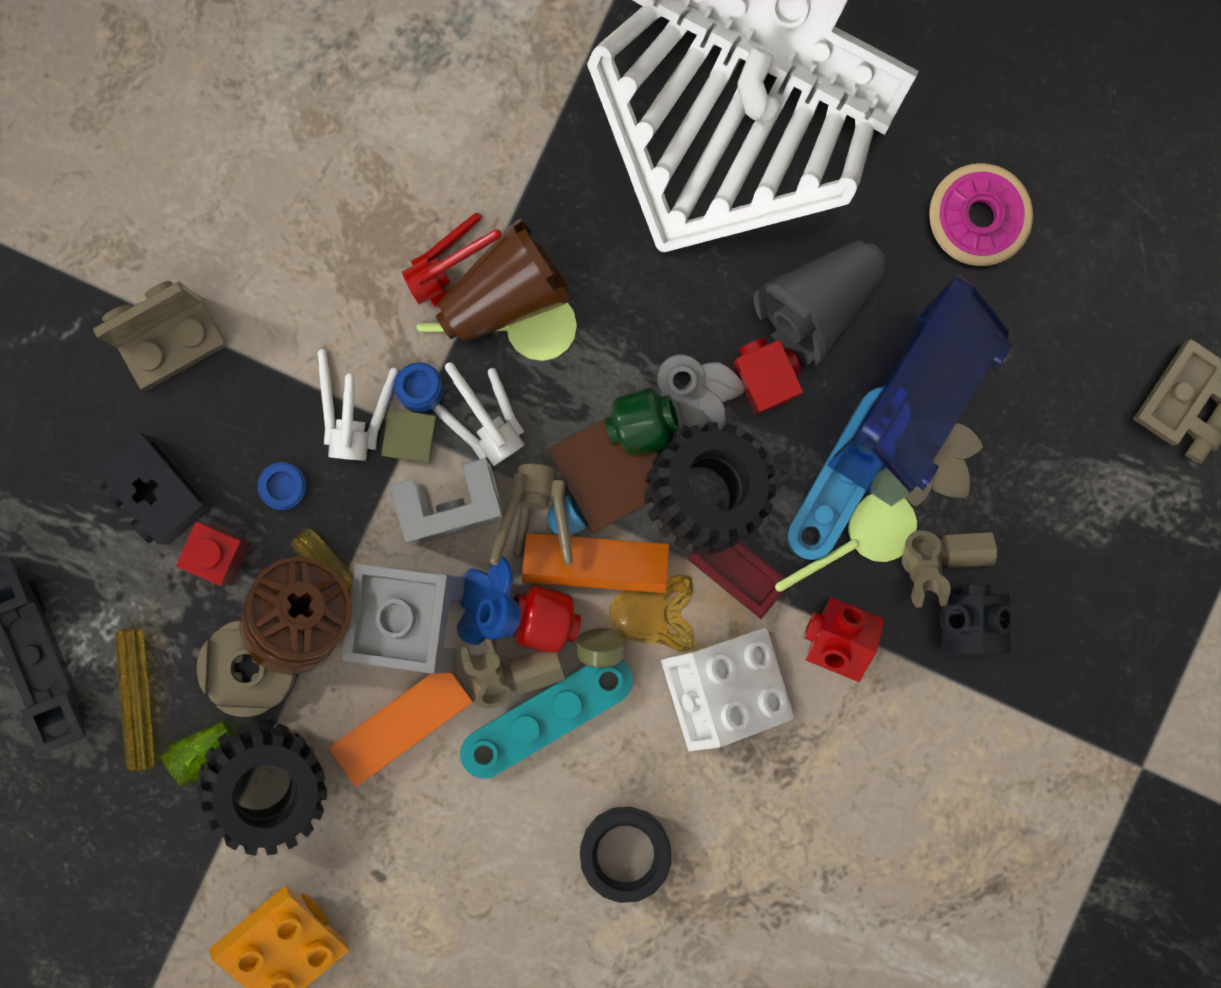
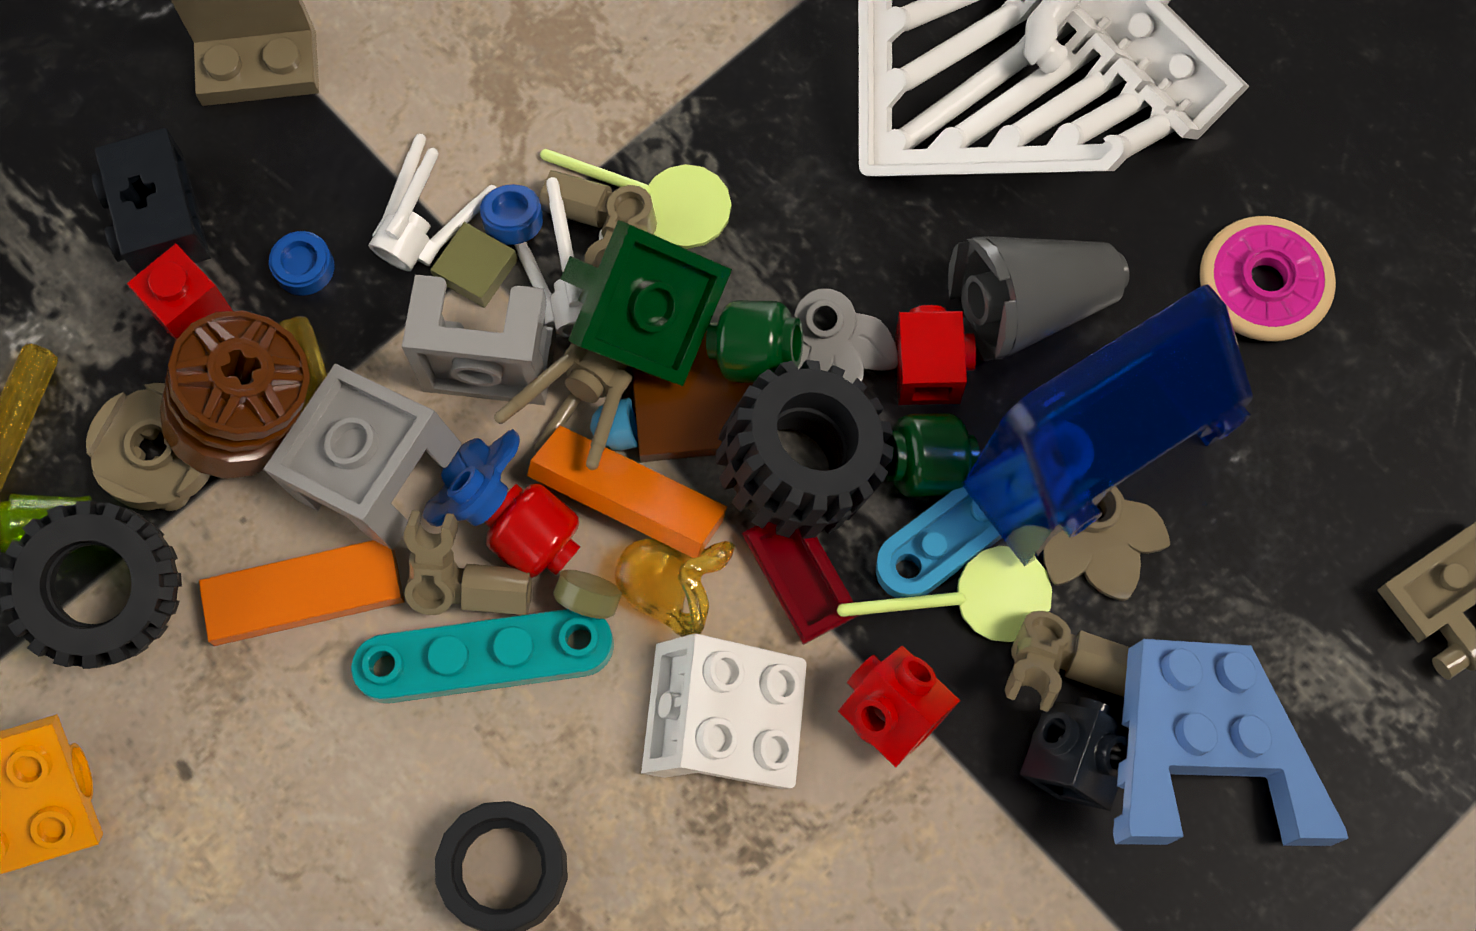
camera: 30 degrees right, 15 degrees down
(429, 274) = (579, 99): red plant -> none
(503, 287) = (658, 133): reddish brown cone -> none
(504, 354) = (598, 205): none -> dark tan bar
(556, 431) = (646, 302): none -> dark green bracket
(796, 450) = (930, 454): none -> dark green head
(1050, 560) = (1213, 715): none -> medium blue wing

